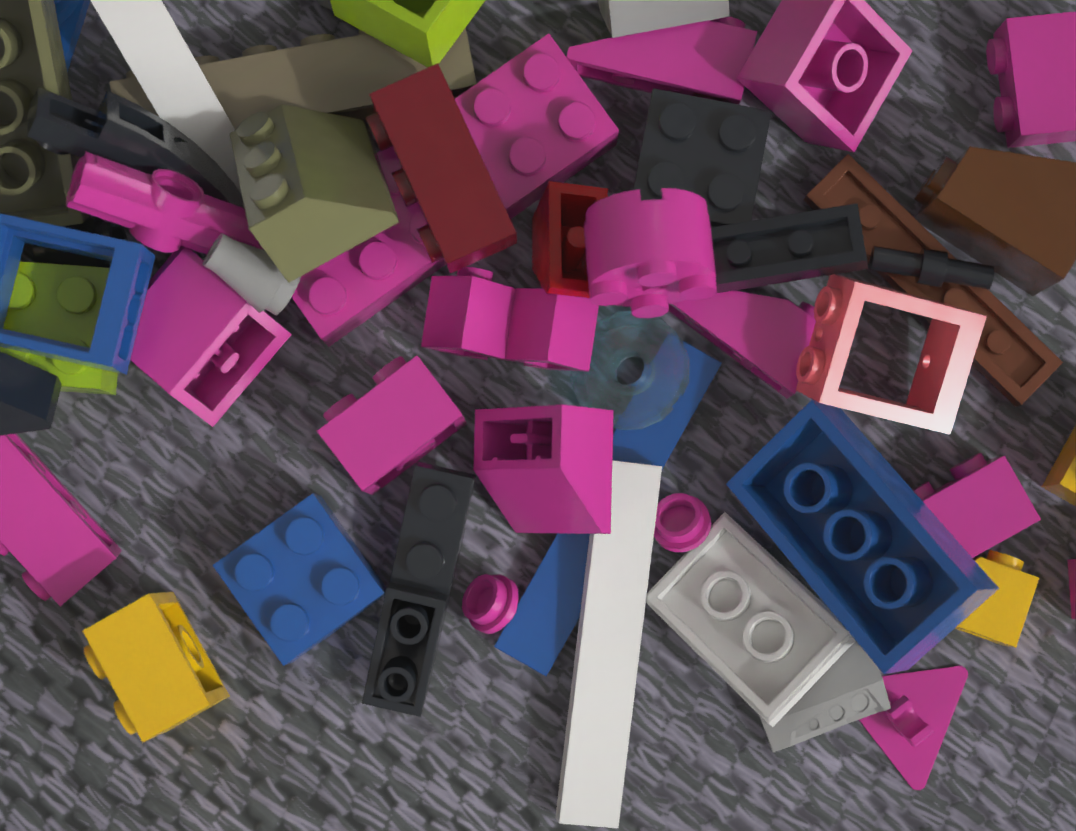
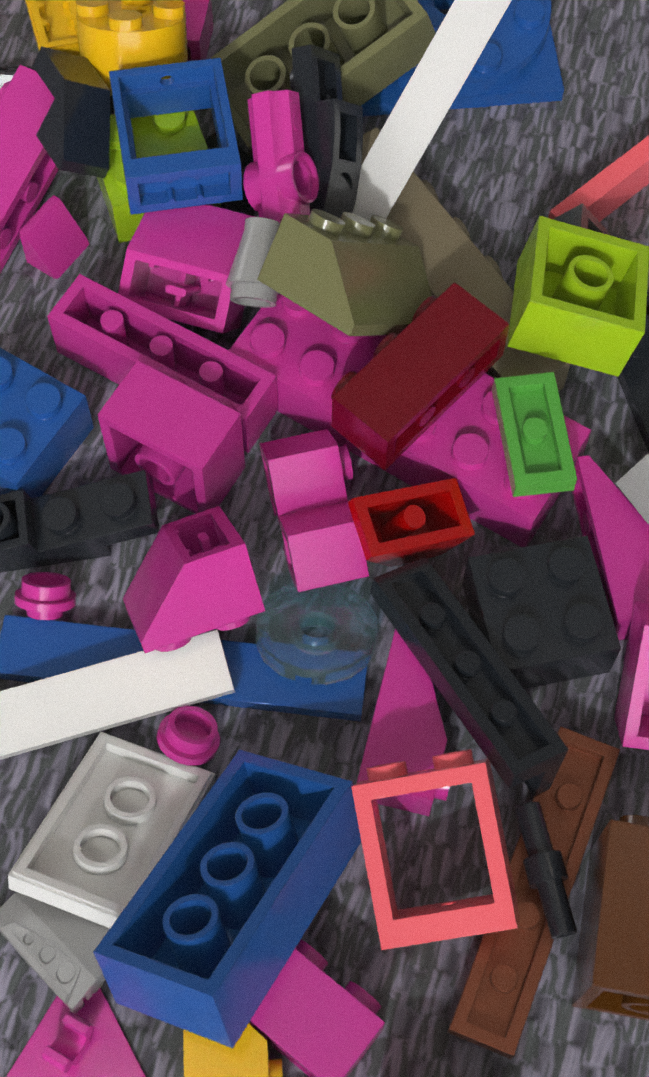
camera: 65 degrees right, 20 degrees down
(93, 460) = (52, 238): none -> dark pink slope
(290, 405) = (114, 332): none -> dark pink brick
(546, 91) = (534, 434): none -> bright green plate
(649, 251) = (424, 561): dark pink brick -> none

